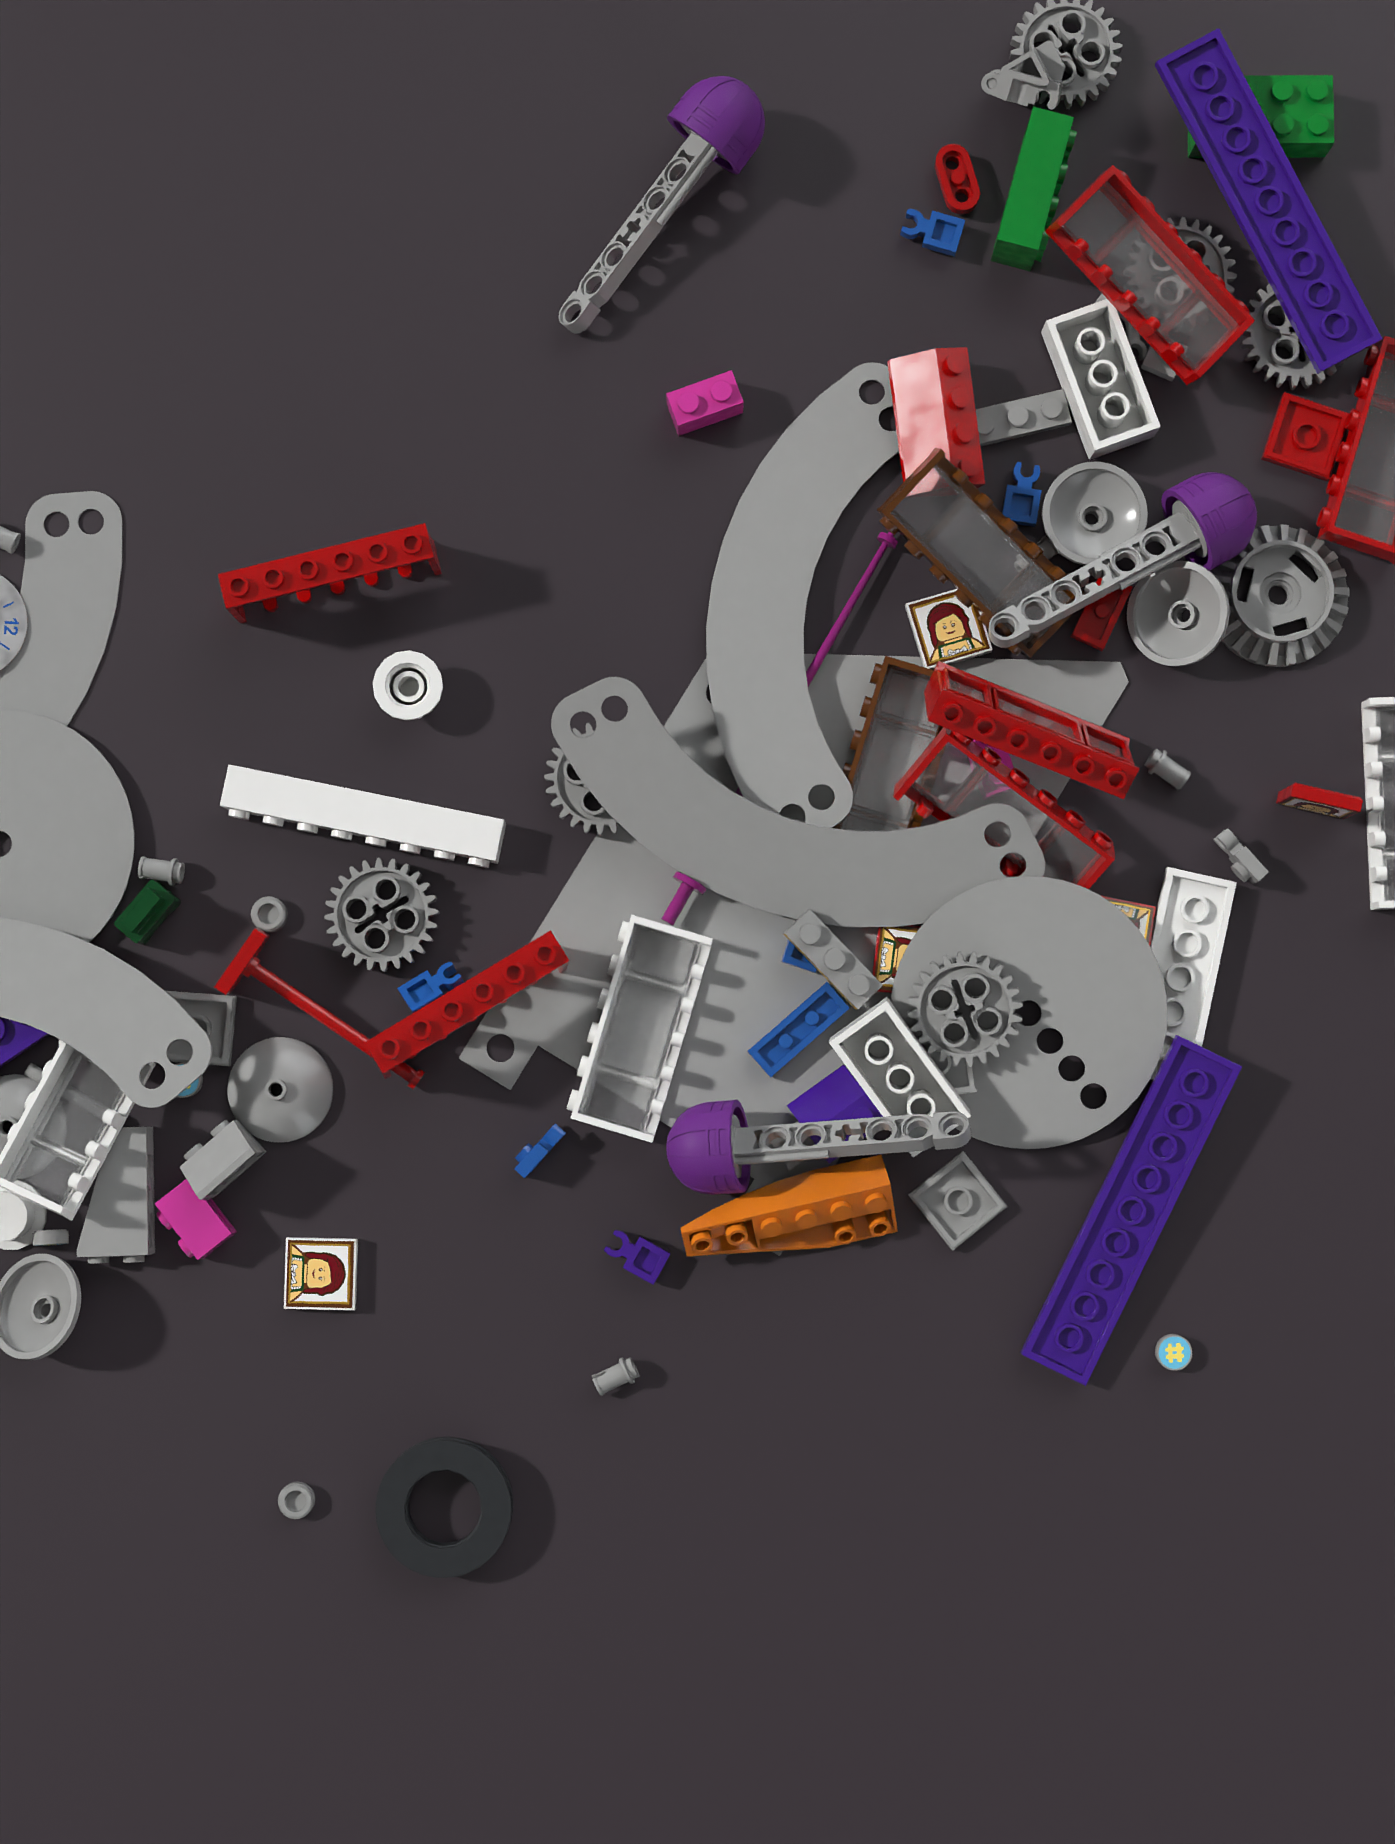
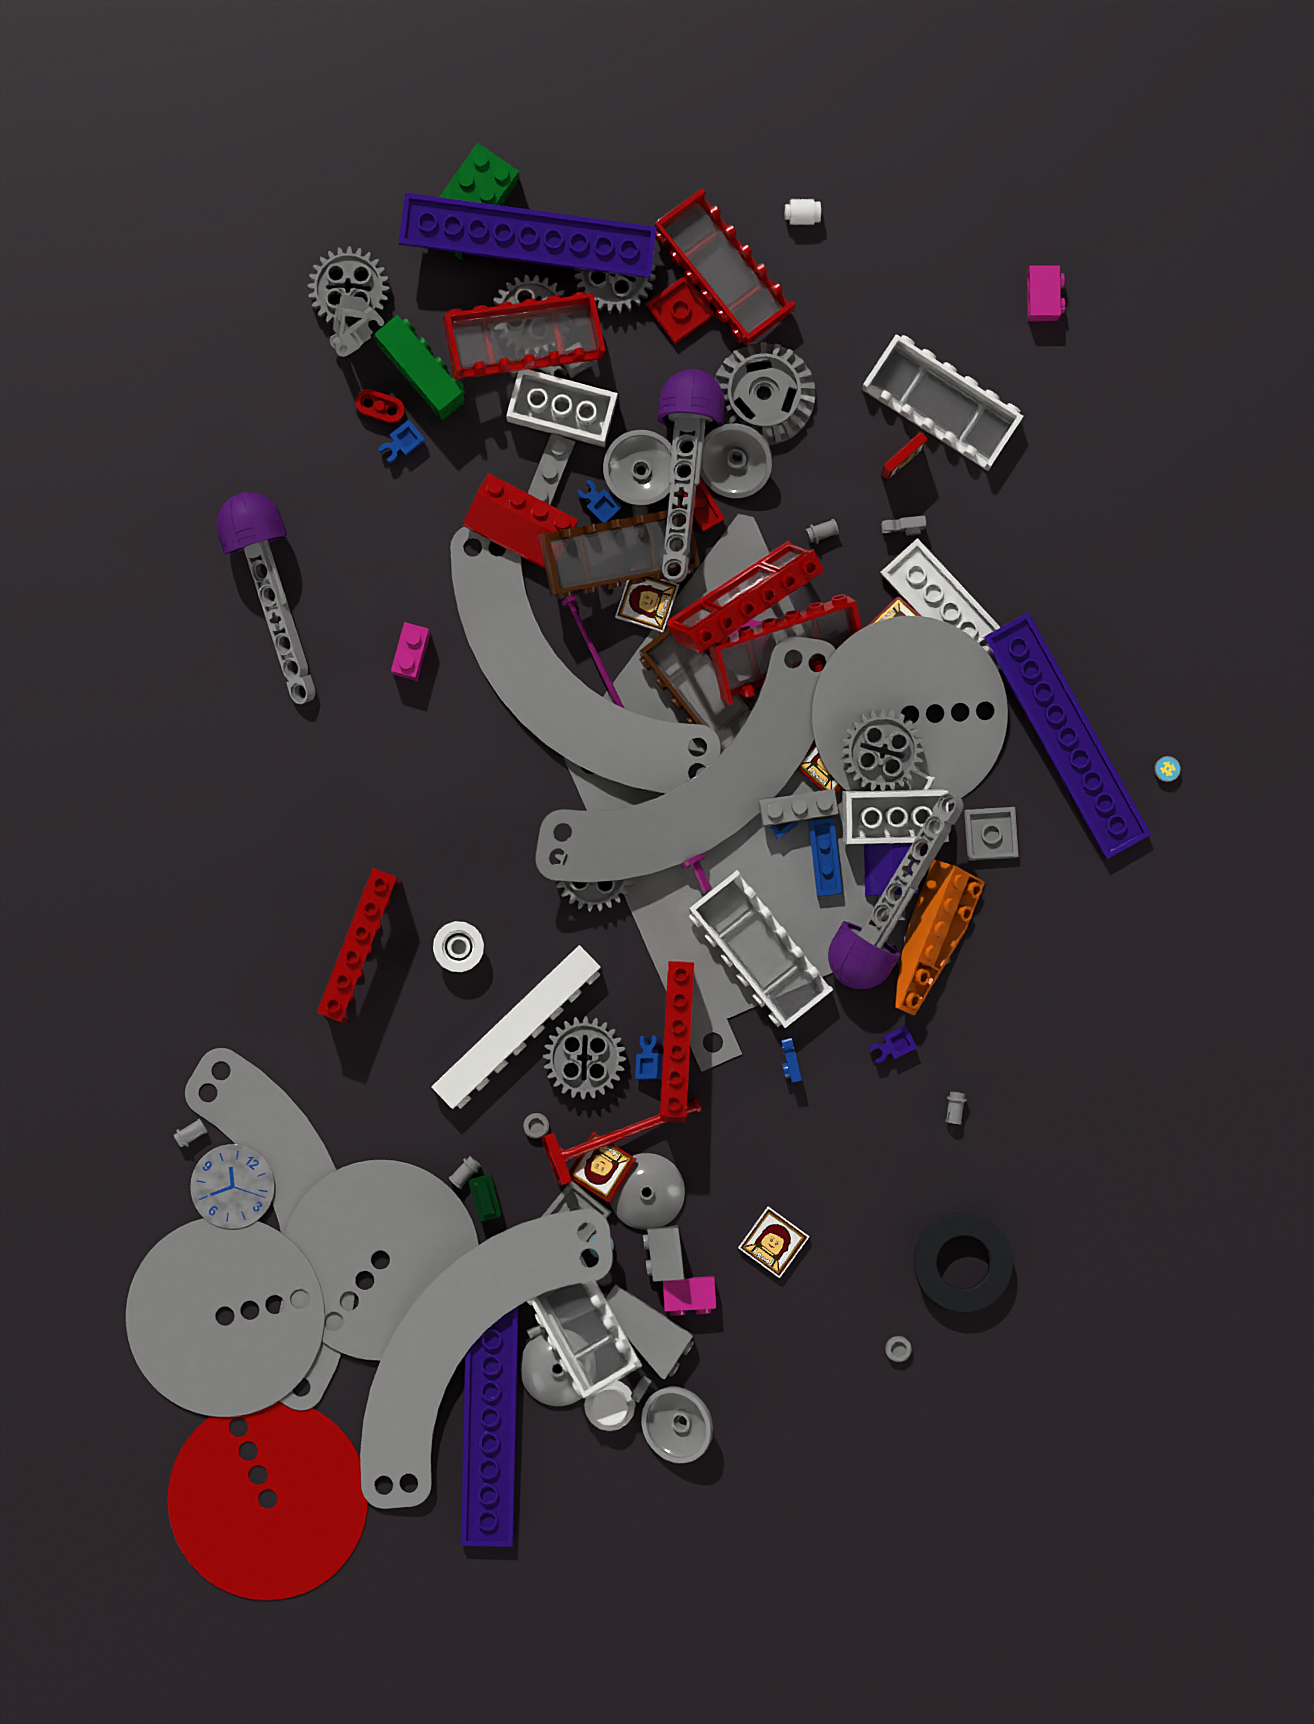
camera: 60 degrees left, 0 degrees up
(268, 1022) = (602, 1169): none -> tile

